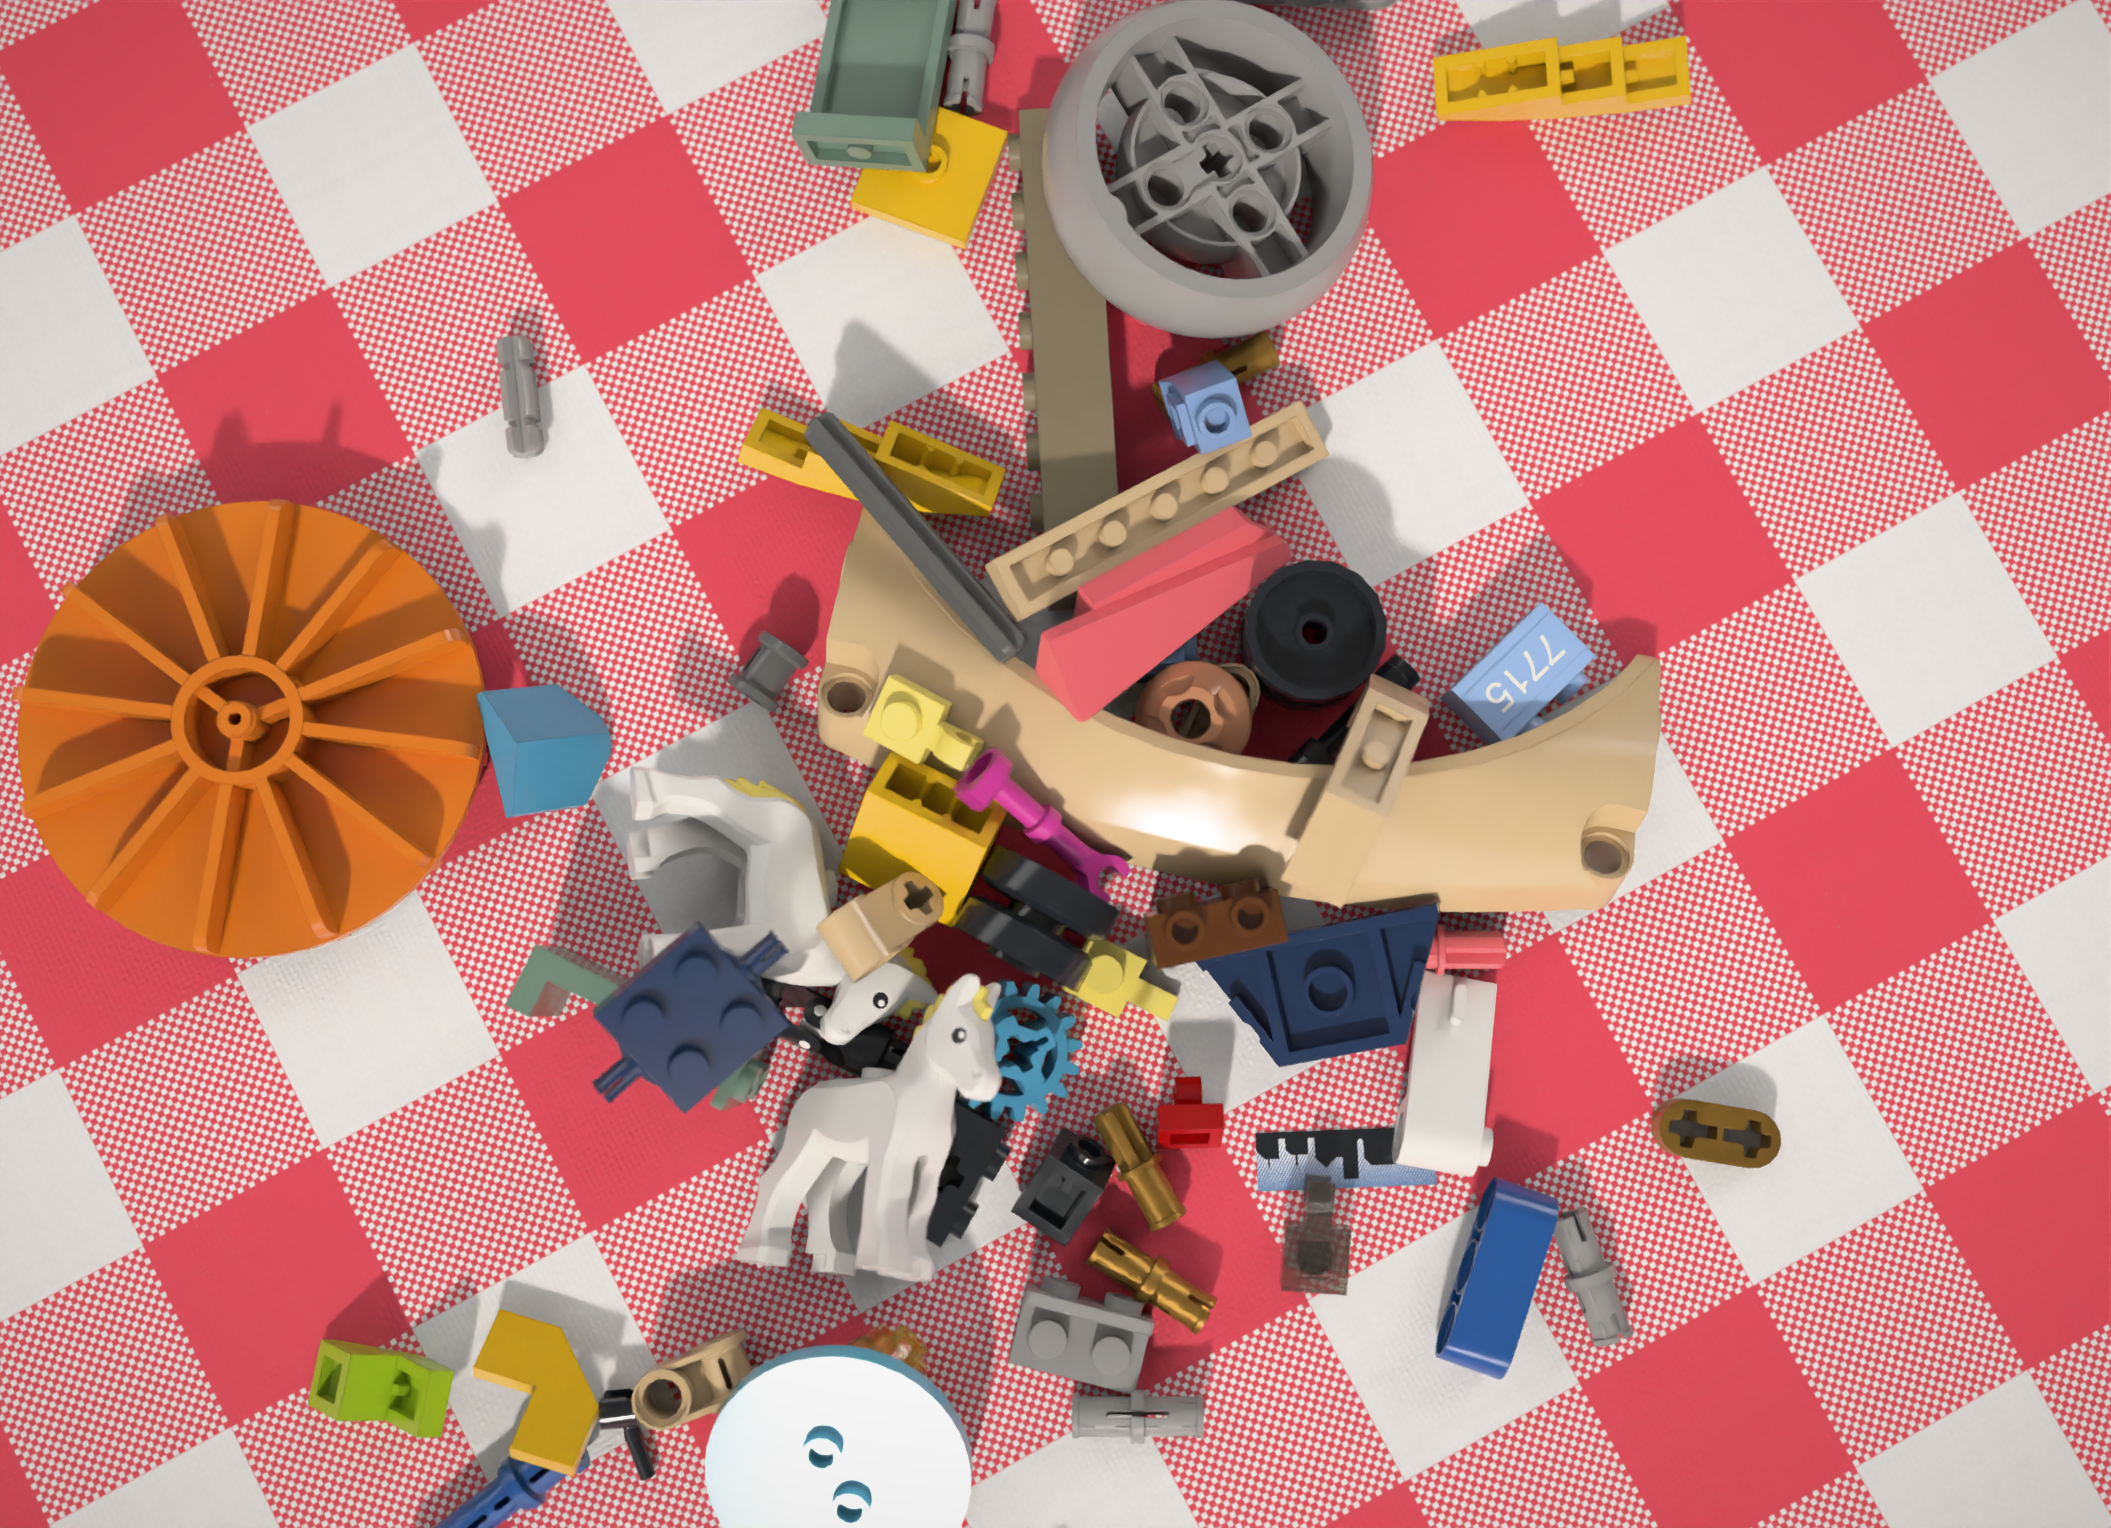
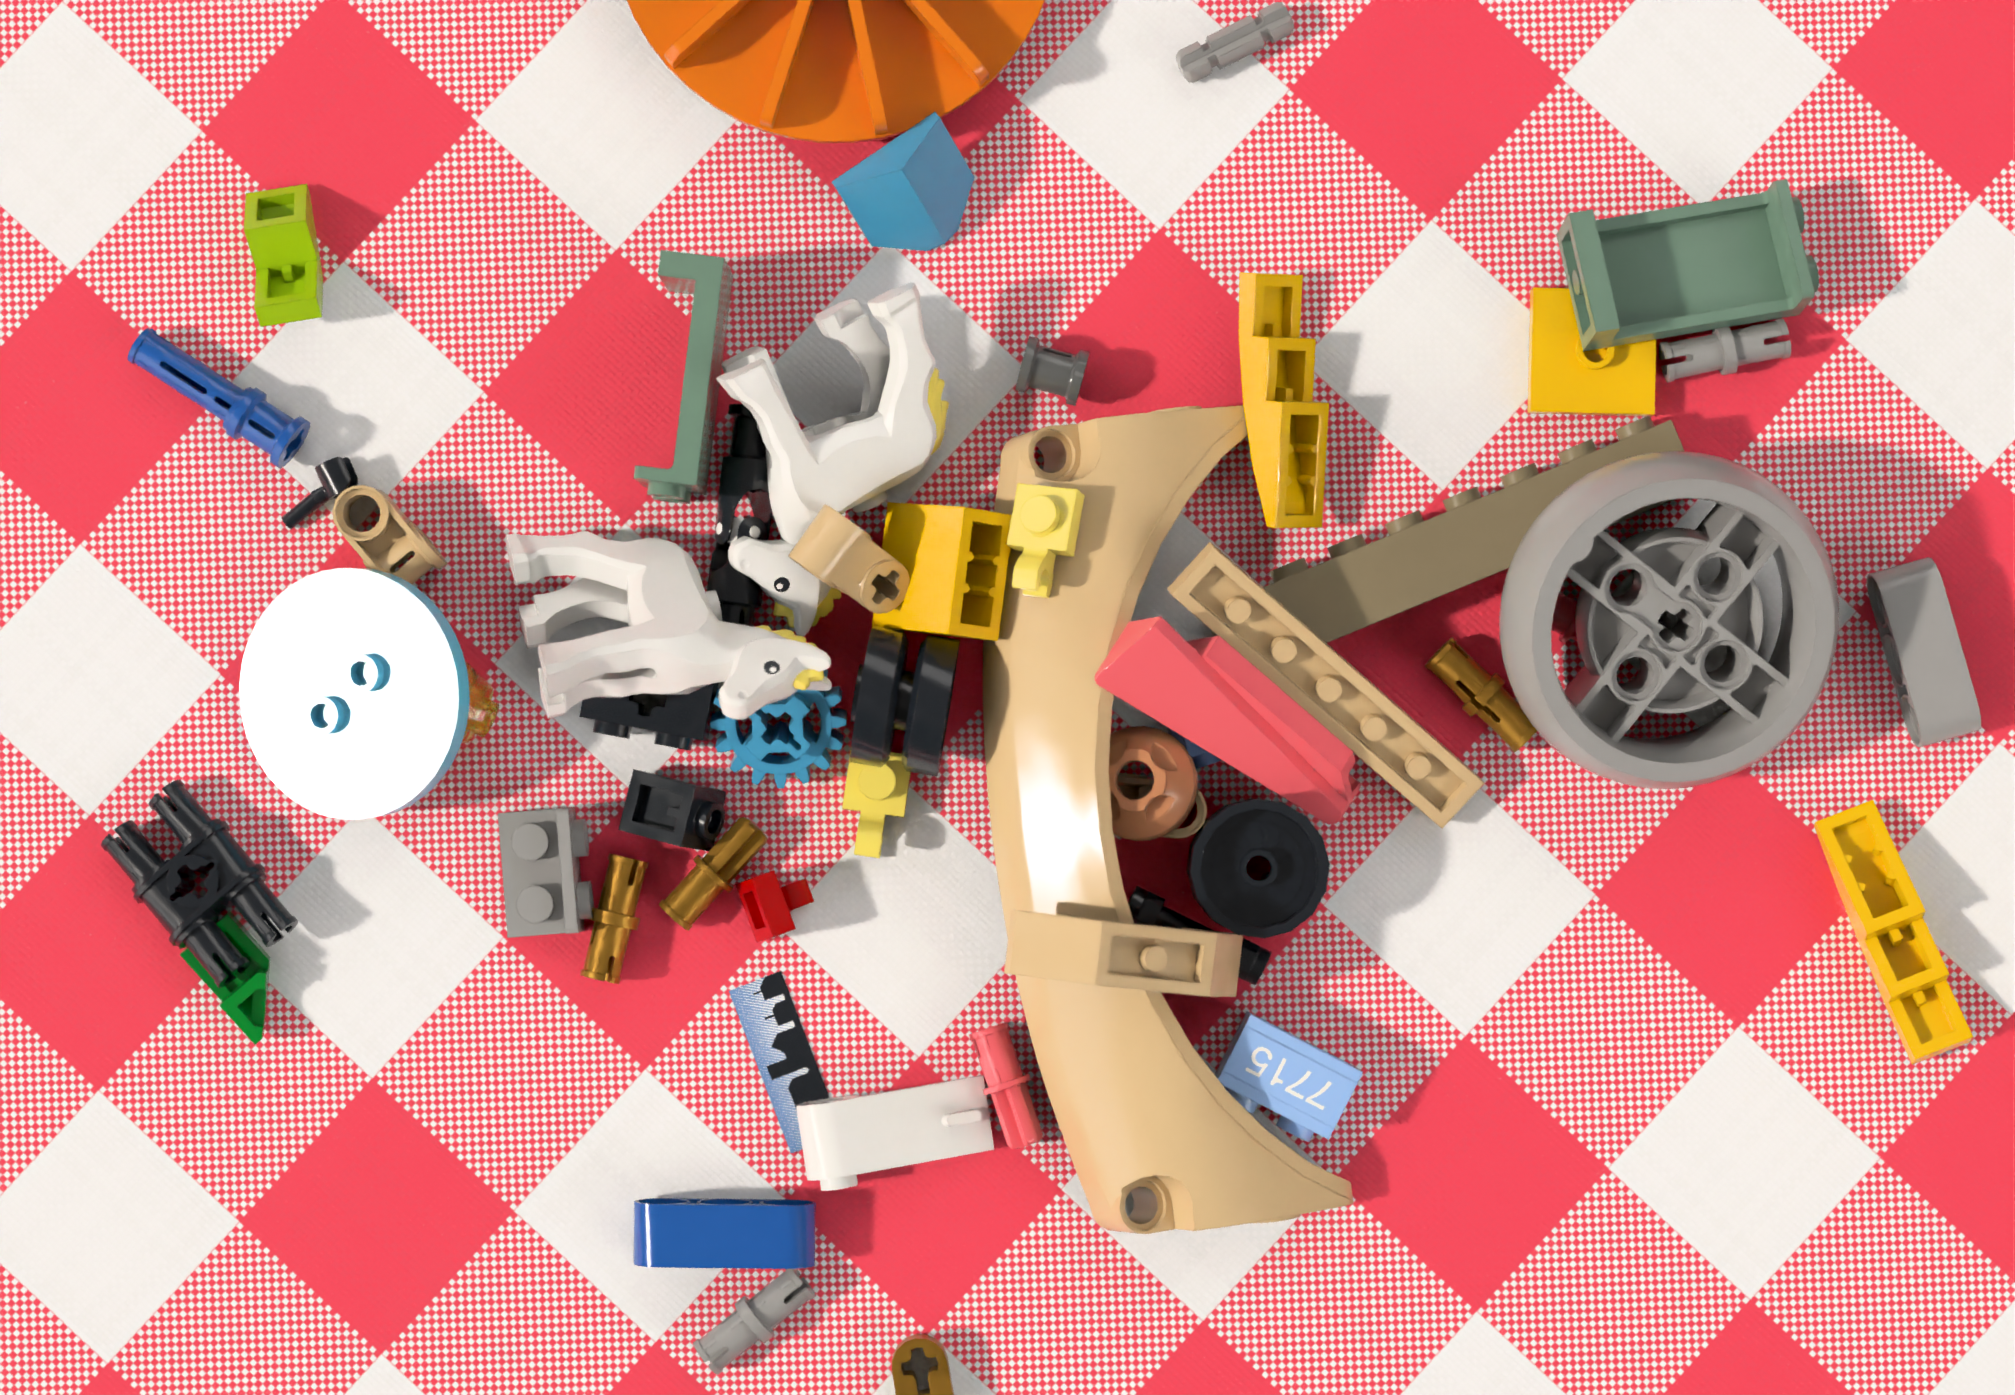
camera: 70 degrees right, 5 degrees up
(562, 1407) = (355, 391): yellow tile -> none
(690, 1017) = (706, 422): dark blue plate -> none
(915, 537) = (1218, 466): dark grey axle -> none
(990, 779) = (1012, 614): dark pink piece -> none
(1183, 1415) = (477, 906): light grey pin -> none
(1205, 407) = (1440, 695): medium blue window -> none
(1215, 927) = (958, 878): reddish brown plate -> none
(1315, 1250) = (694, 1060): clear smoke plate -> none
(1332, 985) = (938, 991): dark blue wing -> none

